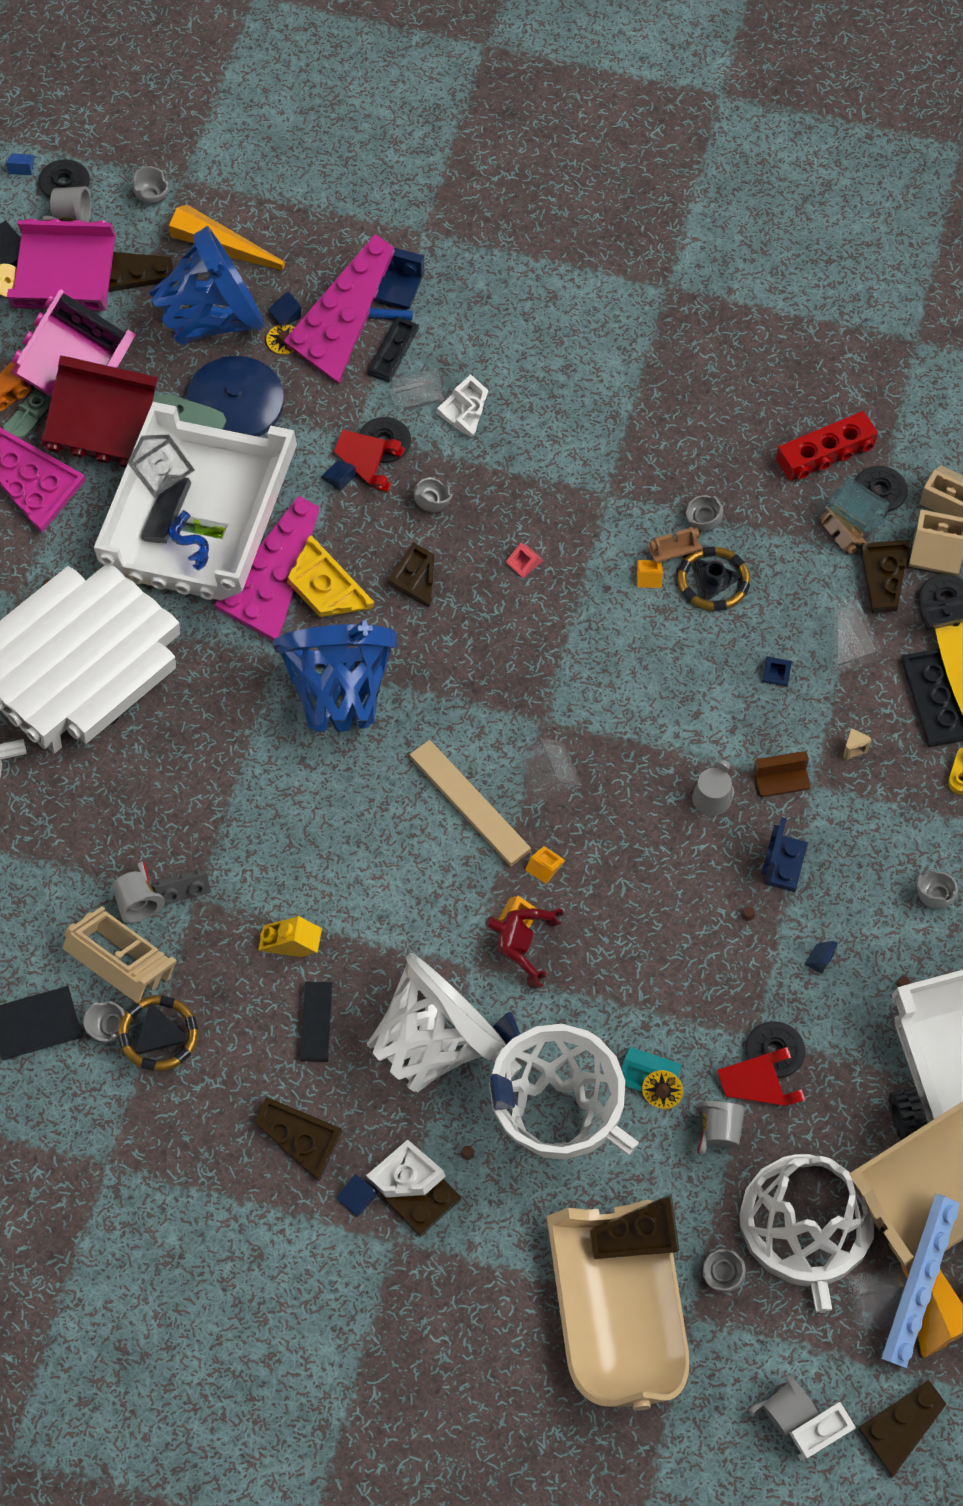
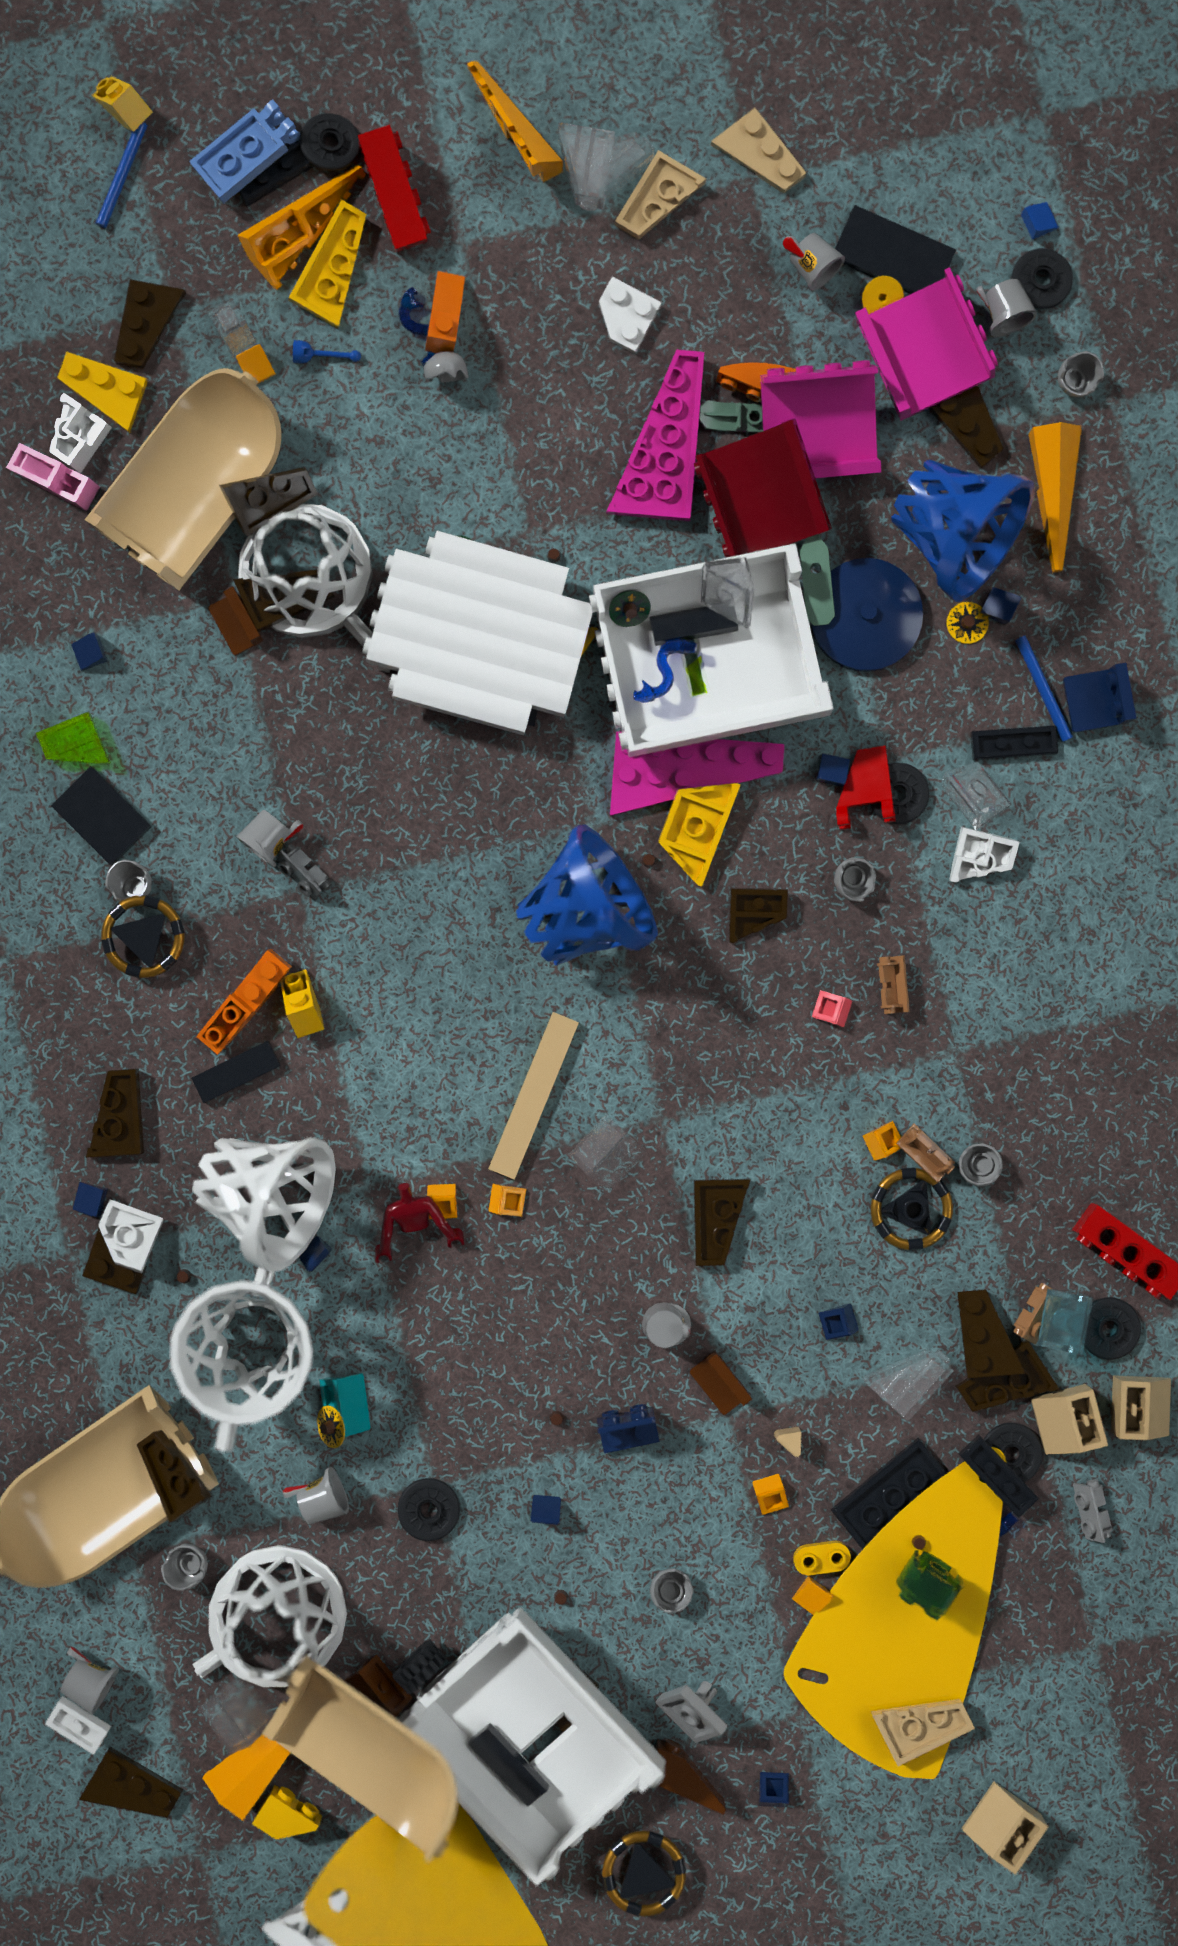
camera: 60 degrees right, 25 degrees up
(88, 322) = (862, 418): tile -> none
(128, 542) = (629, 608): none -> piece
(130, 979) = (188, 892): tan door -> none
(261, 980) = (244, 1001): none -> orange slope
(337, 319) = (1015, 667): dark pink wing -> none
(501, 1092) = (203, 1307): dark blue slope -> none
(530, 507) = (894, 981): none -> medium nougat hinge
(643, 715) = (715, 1217): none -> dark brown wing
(758, 1080) = (387, 1511): red flag -> none
(843, 571) = (984, 1338): none -> dark brown wing
(894, 783) = (770, 1494): none -> light orange slope
(921, 1280) = (265, 1754): light blue plate -> none

